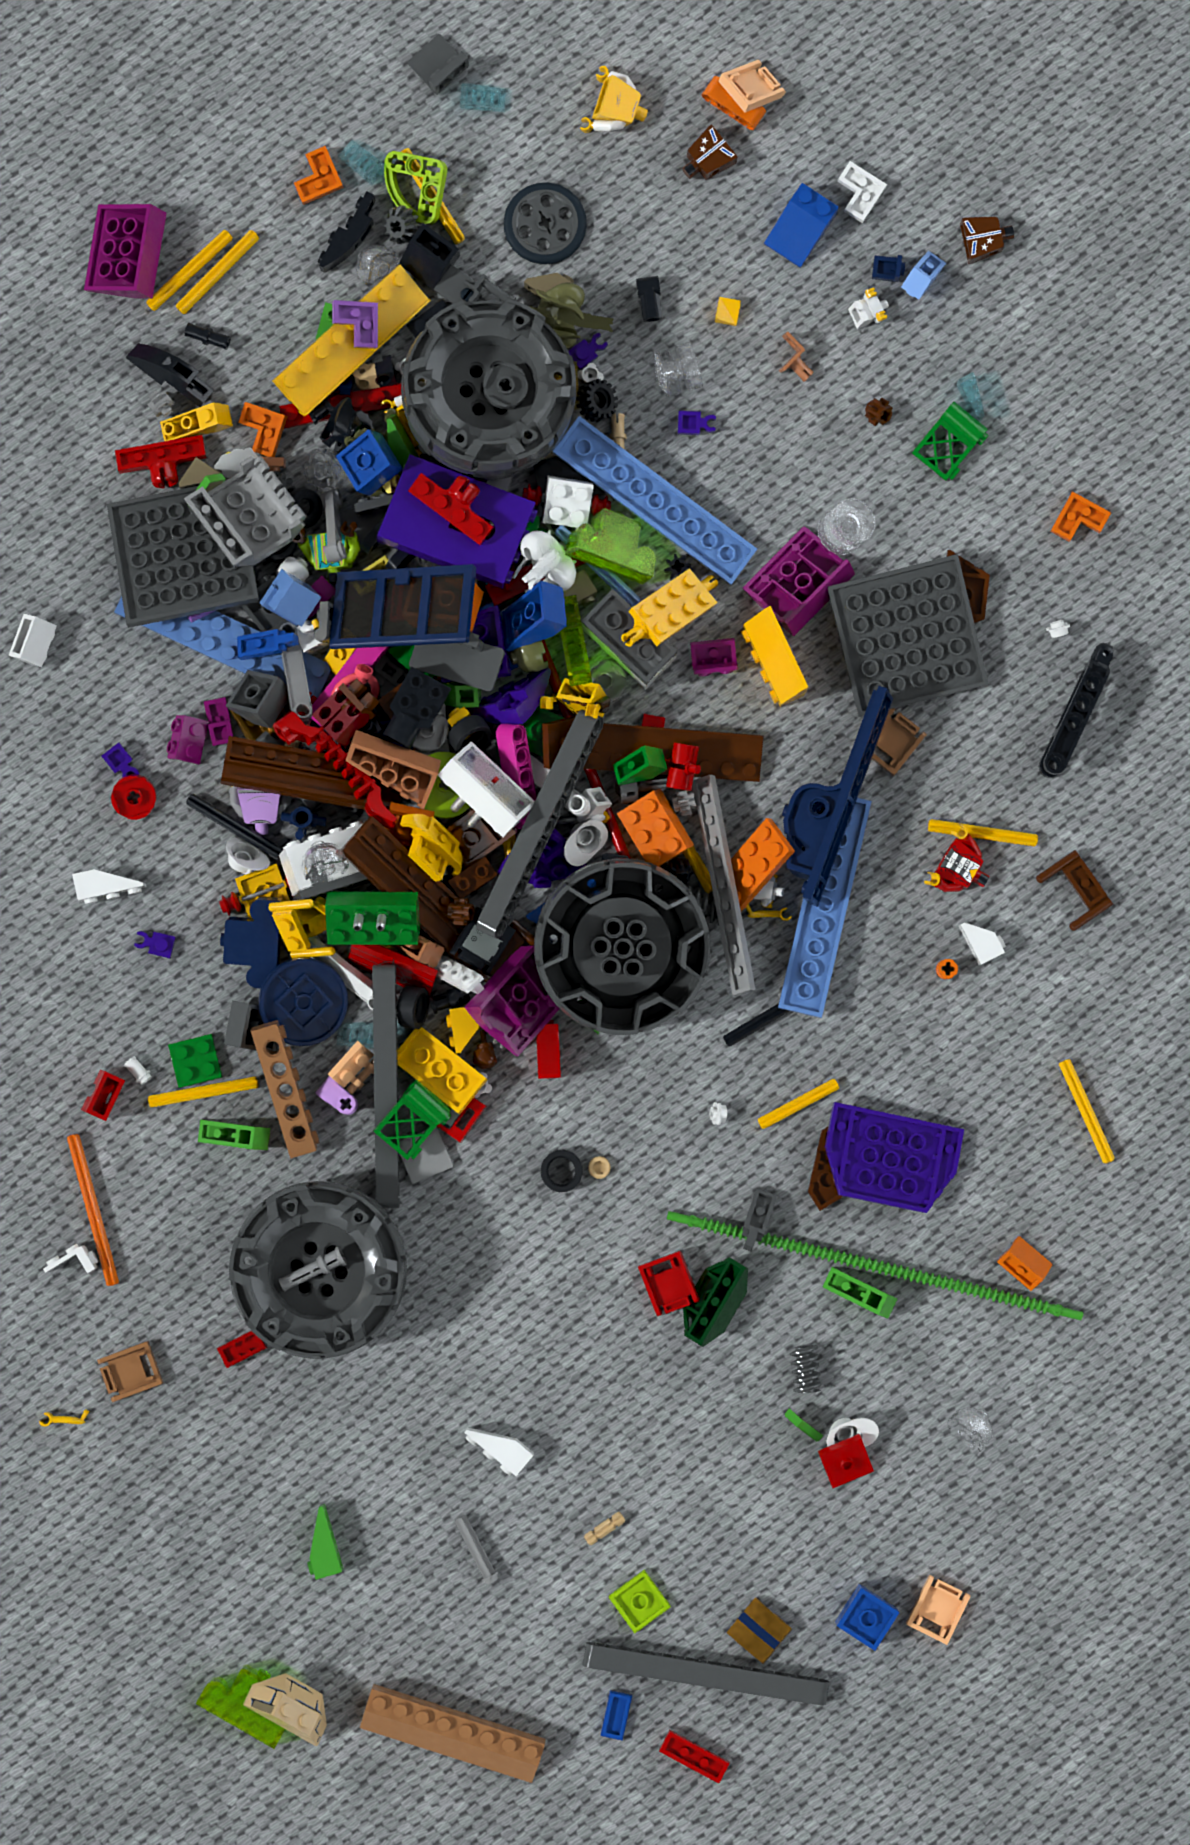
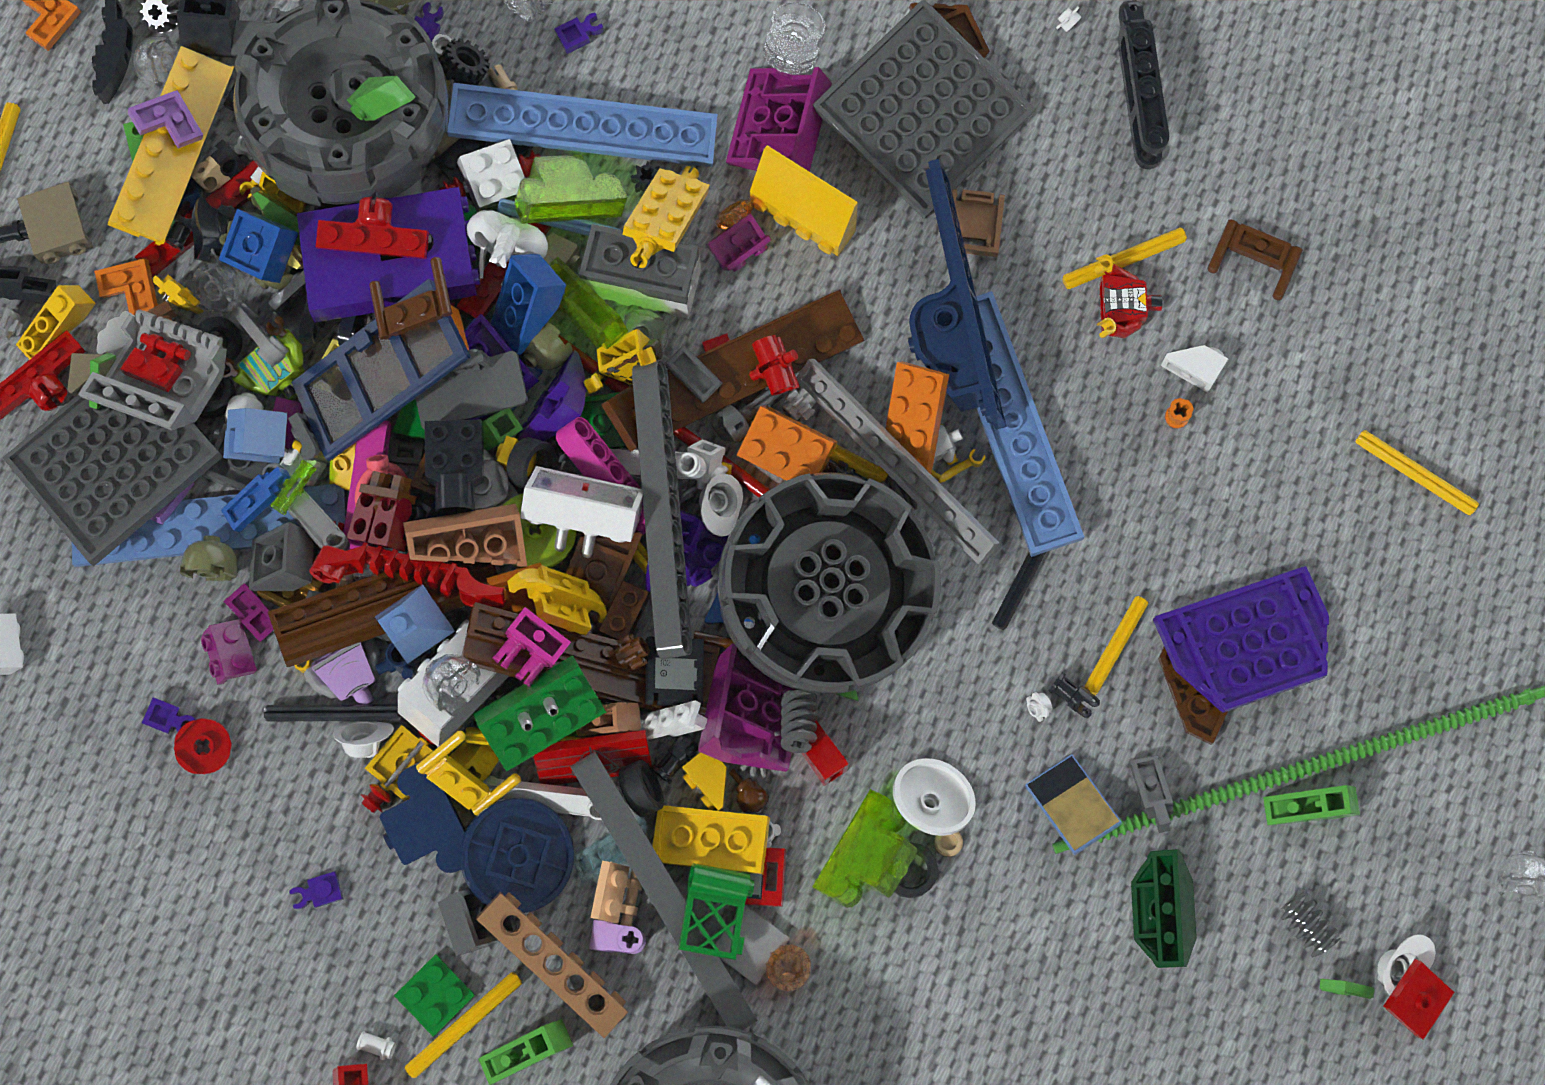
camera: 30 degrees left, 10 degrees down
(96, 884) = (217, 863): white slope -> none
(210, 667) = (210, 560): none -> olive cylinder
(235, 347) = (54, 223): none -> dark tan panel
(245, 507) = (152, 369): none -> red plate
(294, 456) = (177, 294): none -> yellow piece
(299, 651) = (304, 472): none -> clear neon green pin
(323, 804) = (414, 623): none -> medium blue slope
(402, 874) = (536, 637): none -> dark pink brick
(434, 1193) = (801, 966): none -> clear orange gear
(448, 583) = (413, 311): none -> reddish brown plate
(512, 412) = (378, 97): none -> bright green slope
(539, 1143) = (867, 854): none -> clear neon green brick
(543, 1027) = (798, 721): none -> dark grey piece
(617, 1131) = (941, 788): none -> white dish
(620, 736) = (693, 374): none -> dark grey tile
(640, 765) = (731, 388): green slope -> none
(670, 1286) = (1106, 925): red container -> none
(698, 1194) = (1073, 804): none -> tile
(723, 632) = (734, 213): none -> clear orange gear
(747, 1122) = (1074, 695): none -> black piece
(1025, 1263) = (1462, 668): orange panel -> none

